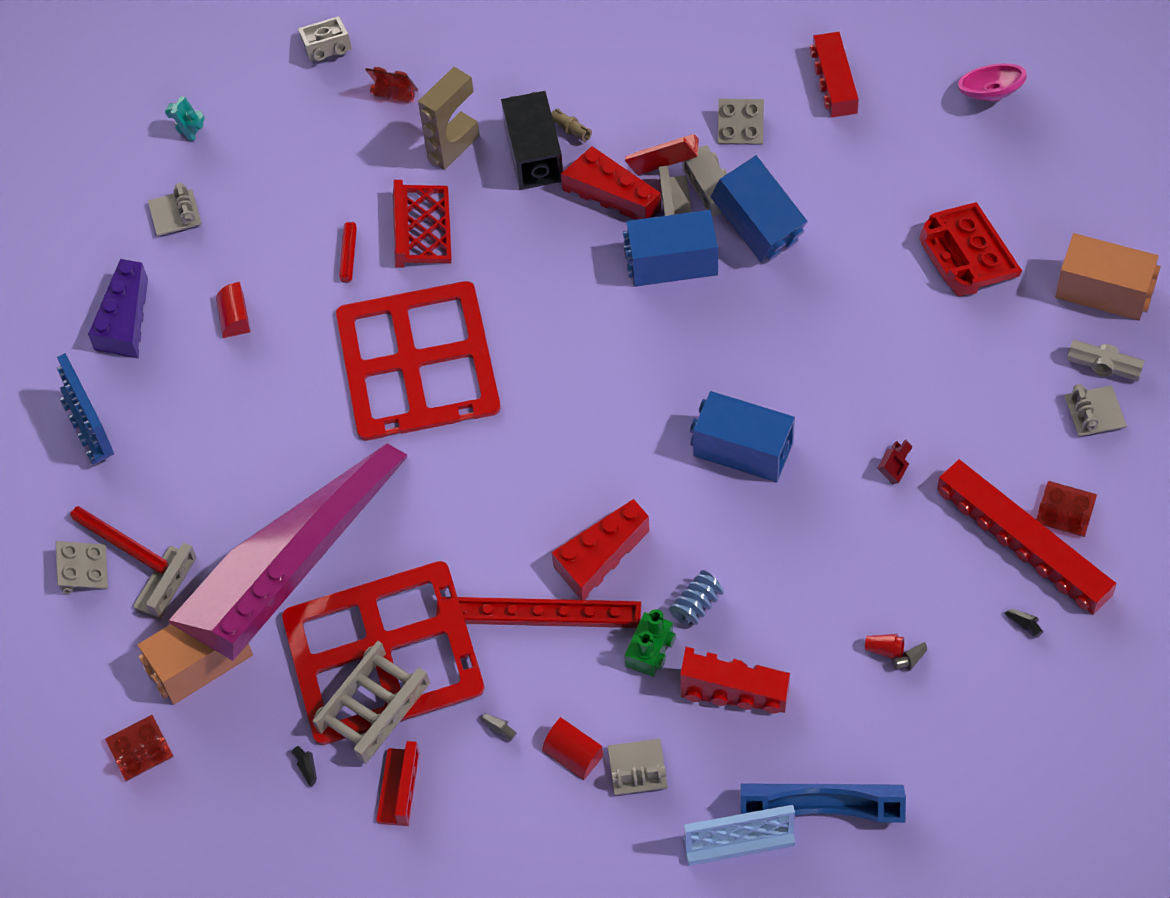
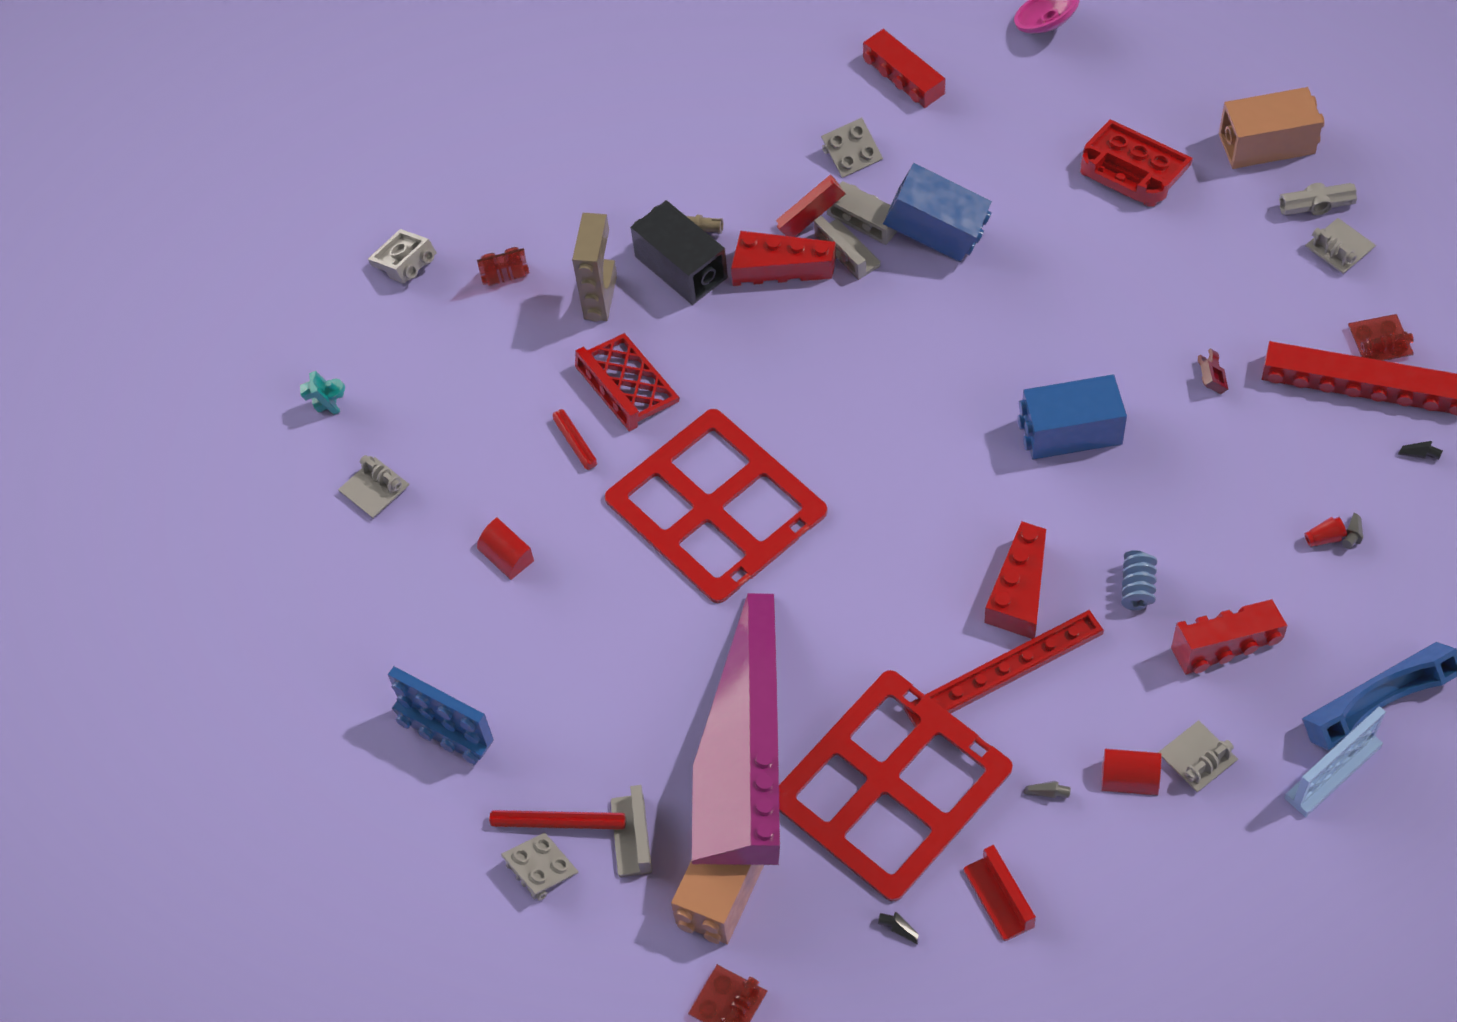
camera: 30 degrees left, 0 degrees up
(121, 311) = (398, 610): dark purple wedge -> none
(382, 723) = (947, 846): light grey fence -> none
(650, 643) = (1127, 641): green brick -> none
(671, 248) = (881, 285): blue brick -> none

